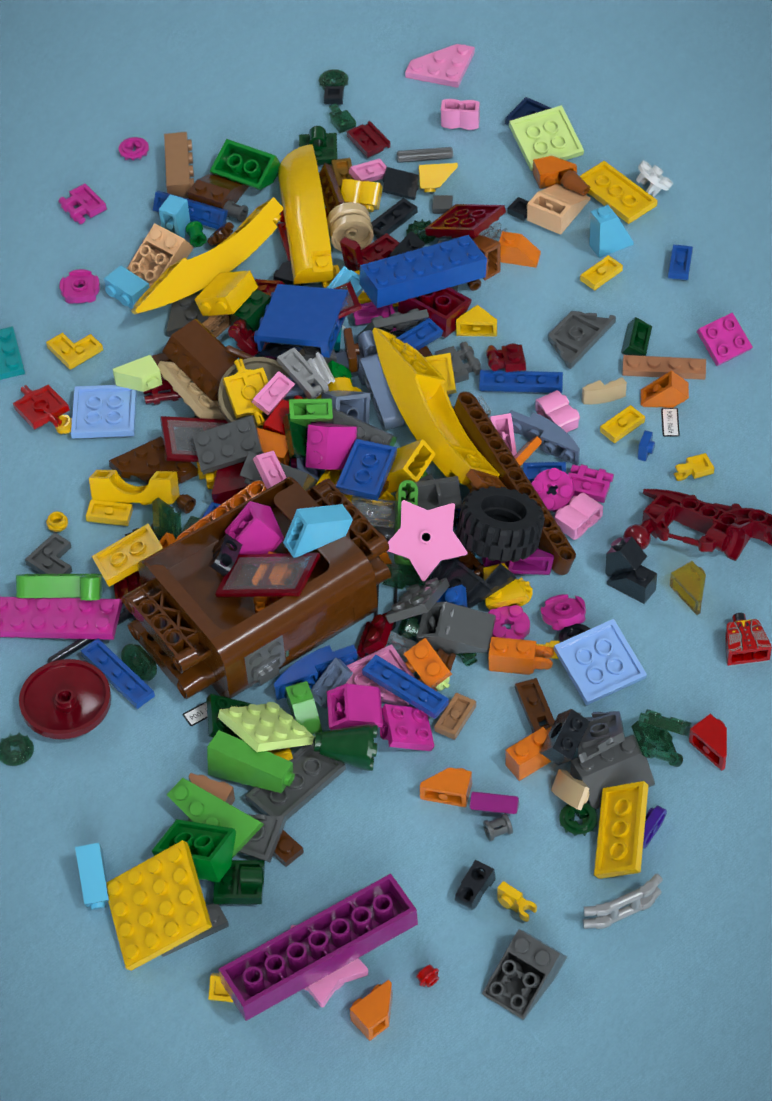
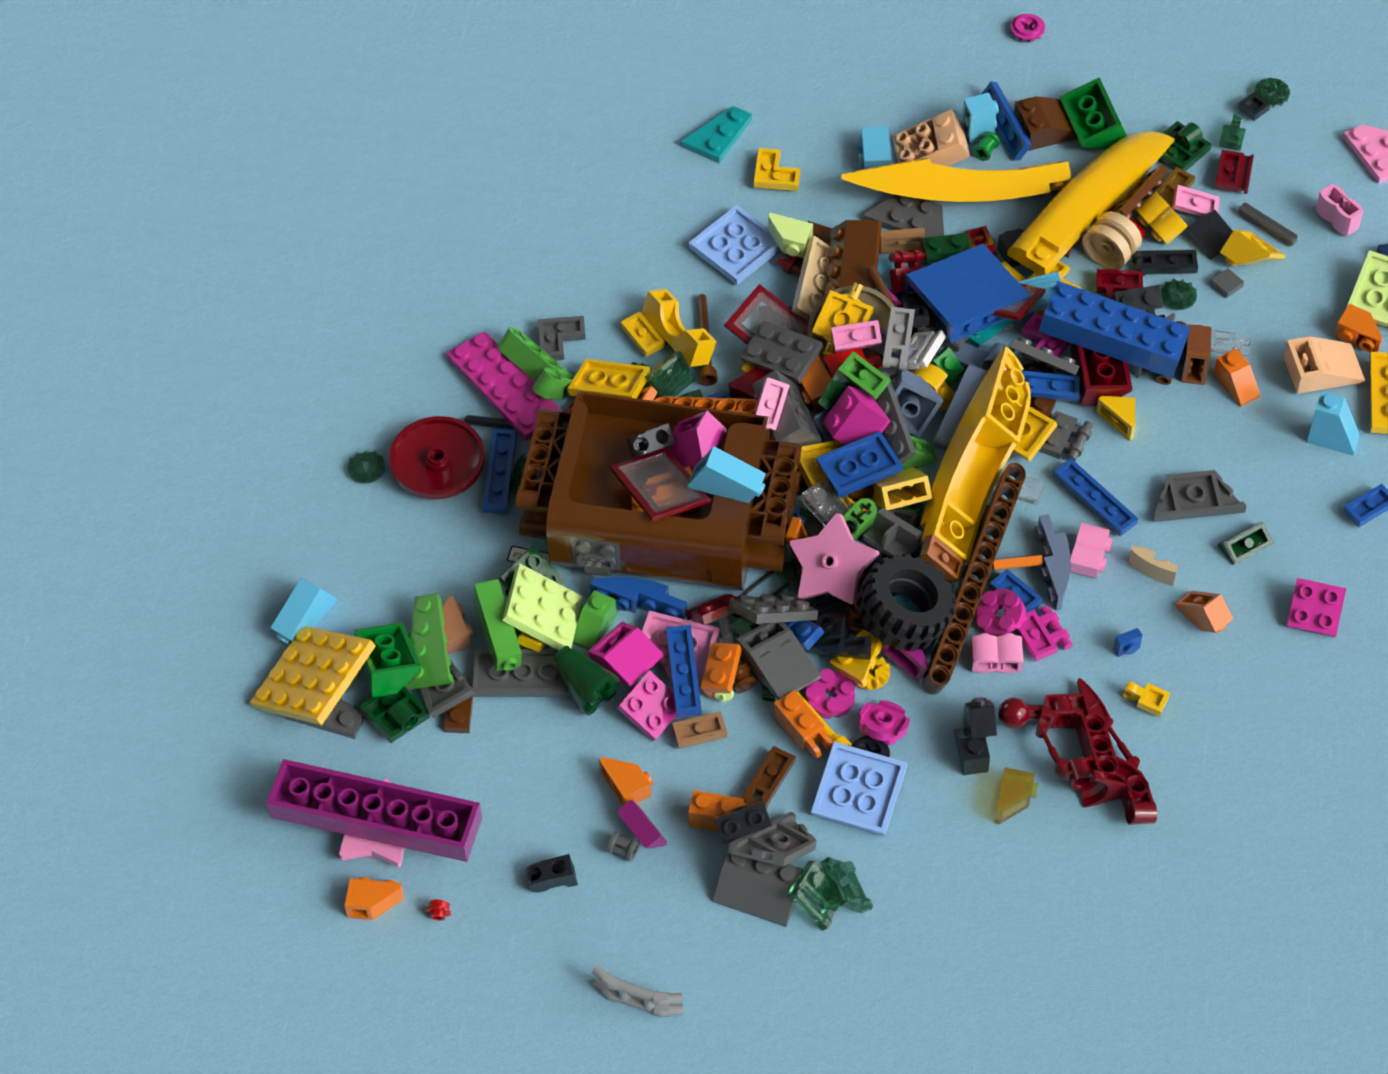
camera: 45 degrees right, 5 degrees up
(41, 406) = (693, 201): red plate -> none
(57, 521) = (600, 305): yellow plate -> none
(65, 426) = (693, 229): yellow plate -> none
(83, 294) = (842, 130): dark pink plate -> none
(86, 199) = (935, 46): dark pink plate -> none
(148, 459) = (712, 313): reddish brown plate -> none
(178, 163) = (1042, 69): medium nougat brick -> none
(221, 234) = (1003, 162): reddish brown gear -> none
(226, 293) = (935, 218): yellow brick -> none
(236, 211) = (1042, 150): dark grey bush -> none
(334, 676) = (639, 615): sand blue plate -> none
(352, 254) = (1084, 269): dark red plate -> none
(352, 350) = (977, 350): reddish brown plate -> none
(465, 220) = (1218, 313): dark red plate -> none
(504, 426) = (1018, 531): bright pink slope -> none
(510, 358) = (1112, 469): dark red plate -> none
(513, 899) = (564, 909): yellow plate -> none
(518, 209) = (1283, 335): black plate -> none
(523, 974) = (507, 974): dark grey slope -> none
(570, 790) = (705, 868): tan slope -> none
(575, 183) = (1362, 352): dark orange cone -> none
(588, 817) = (689, 887): dark green gear -> none
(601, 272) = (1286, 457): yellow plate -> none
(621, 830) = (704, 935): yellow plate -> none
(622, 424) = (1134, 607): yellow plate -> none
(653, 822) = (737, 955): dark purple plate -> none
(658, 366) = (1236, 588): nougat plate -> none
(670, 422) = (1182, 641): white sticker -> none
(711, 740) = (870, 933): red slope -> none
(746, 641) = (998, 879): red torso -> none

